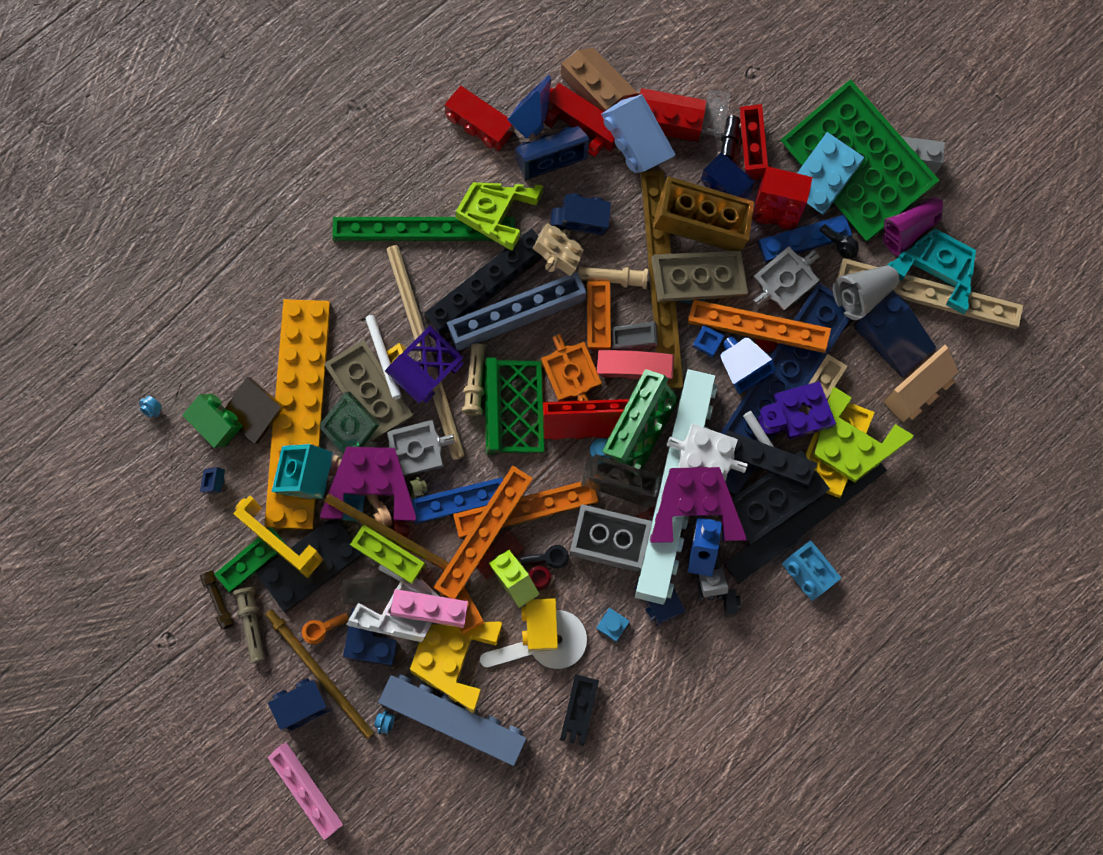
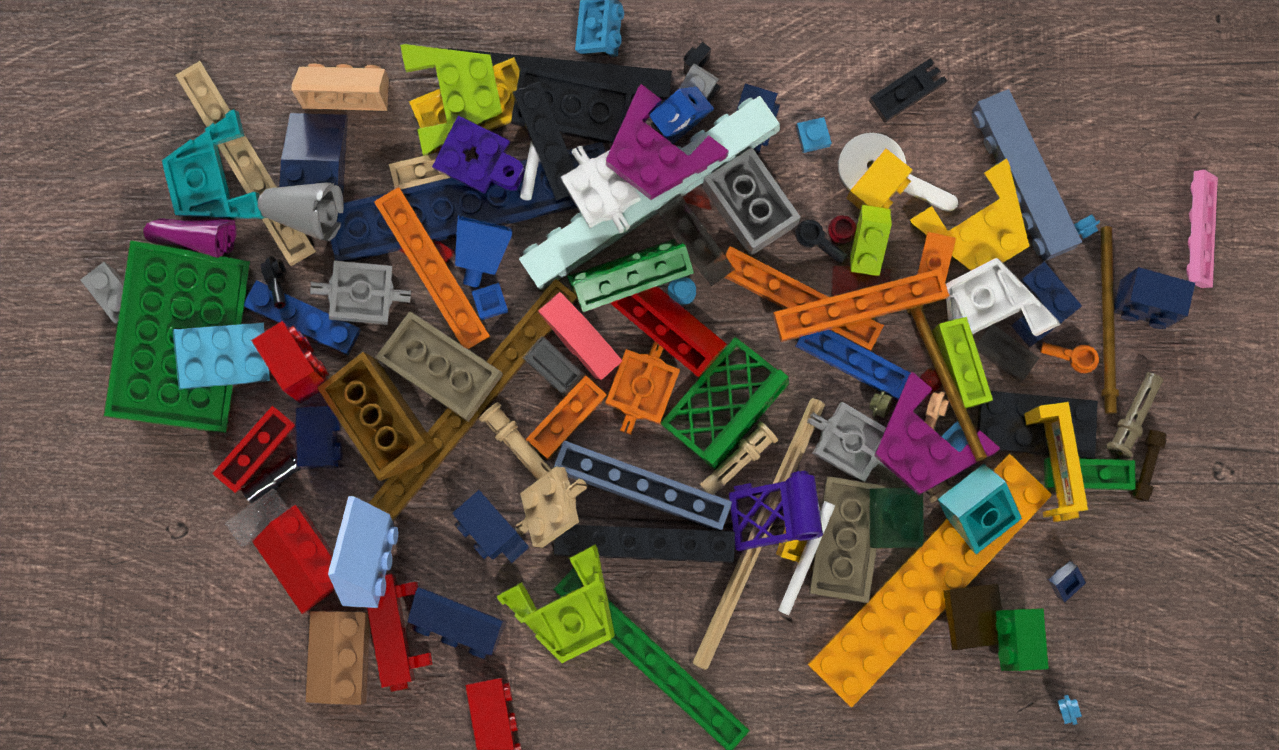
camera: 140 degrees left, 5 degrees up
(428, 608) = (971, 279): bright pink plate -> none
(532, 110) = (436, 683): blue slope -> none

